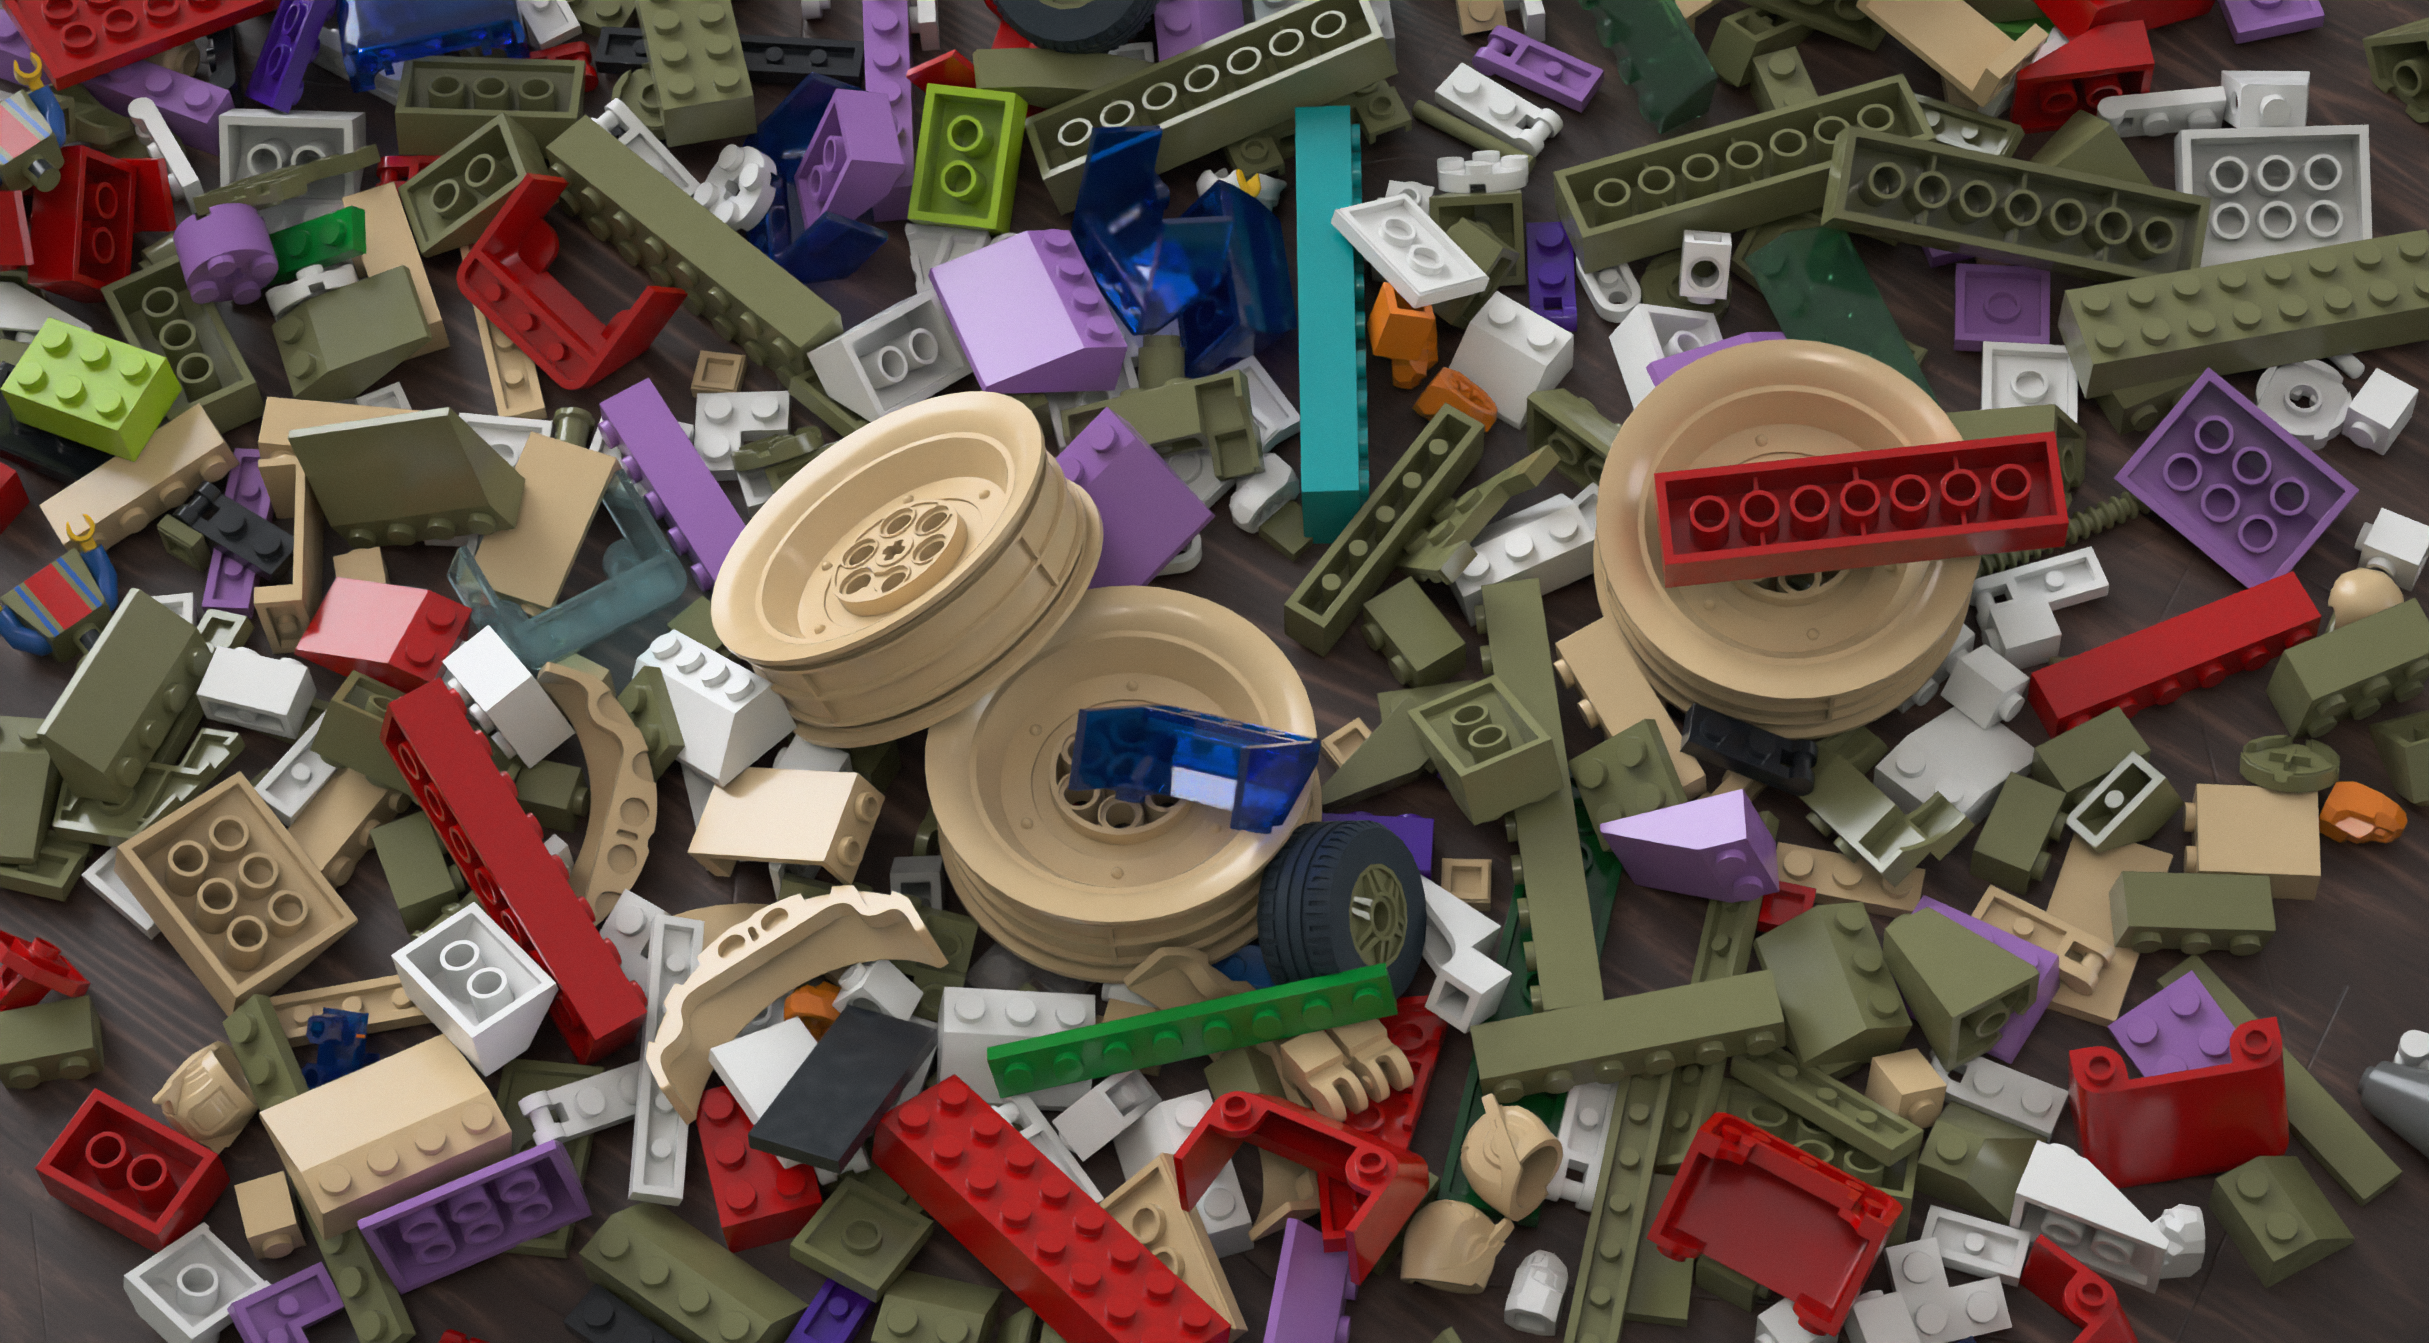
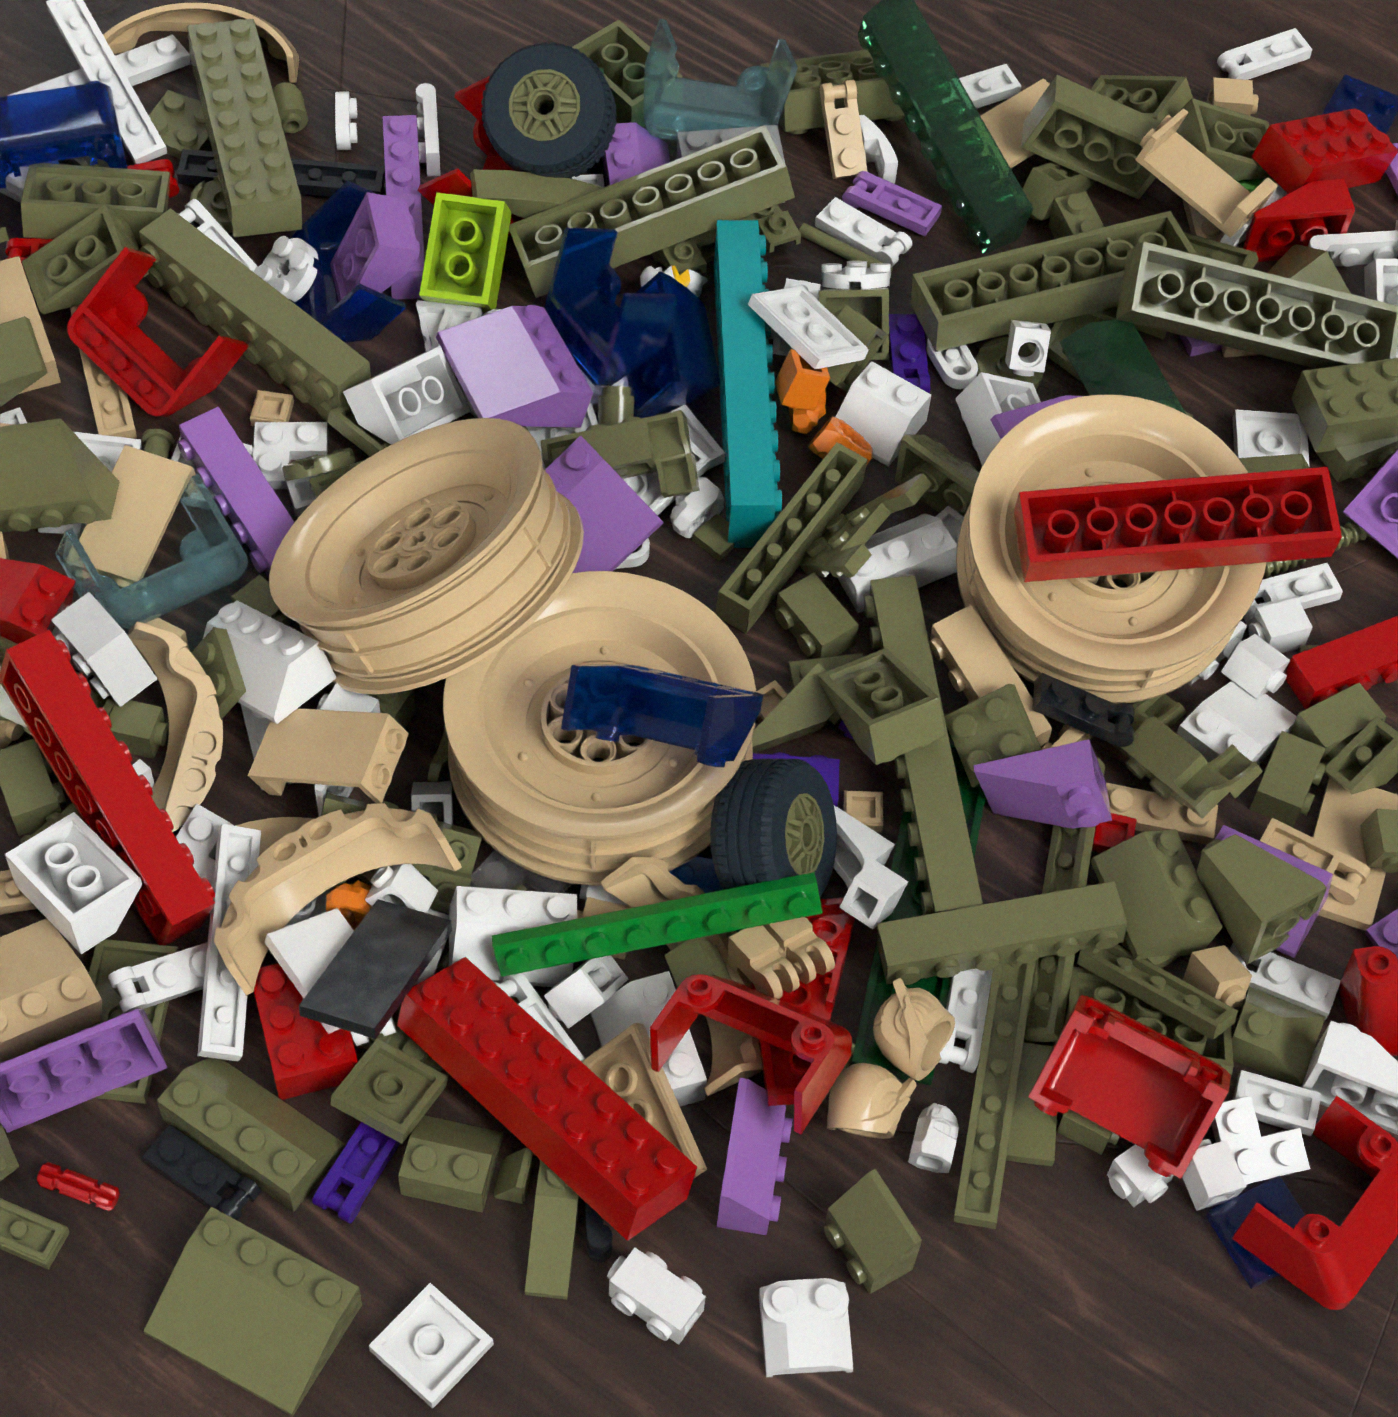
camera: 10 degrees left, 0 degrees up
(2000, 305) = (1245, 384): medium lavender plate -> none

